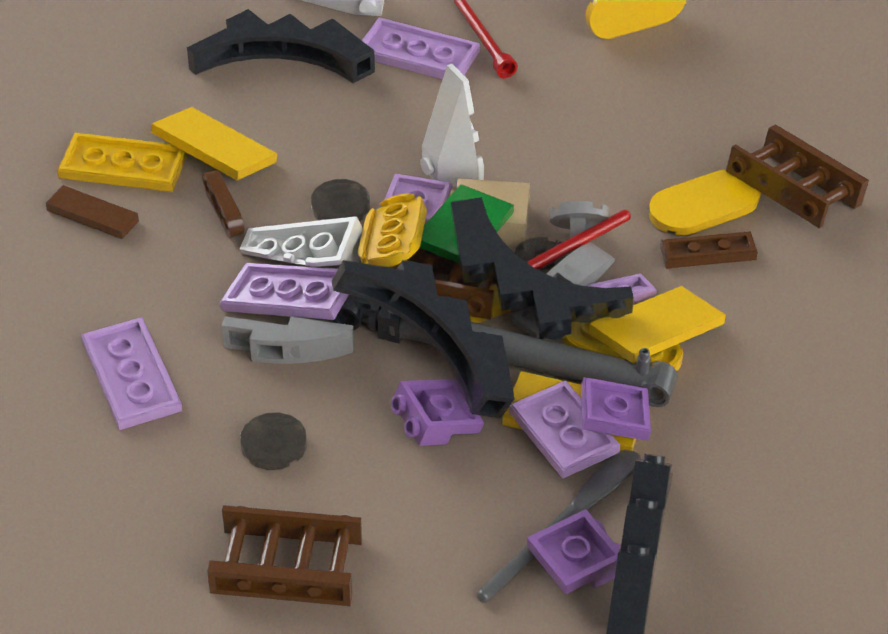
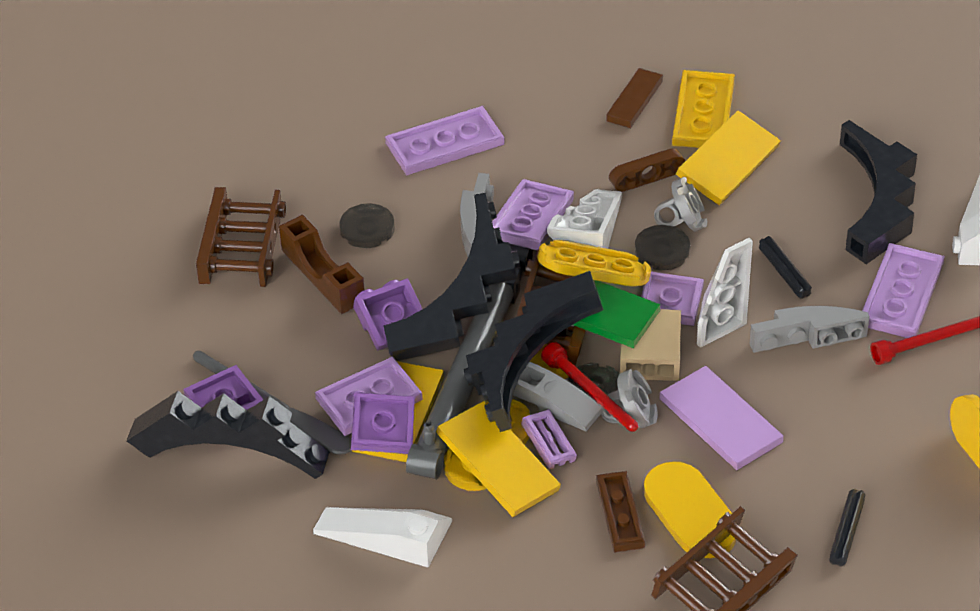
camera: 90 degrees right, 0 degrees up
(297, 172) = (685, 205): none -> light grey tile
(380, 119) = (785, 267): none -> black axle
(388, 453) = (304, 248): none -> reddish brown arch
(481, 96) = (809, 323): none -> light grey slope
(586, 173) = (721, 417): none -> lavender tile
(721, 106) = (847, 527): none -> black axle
(746, 415) = (393, 532): none -> white wedge

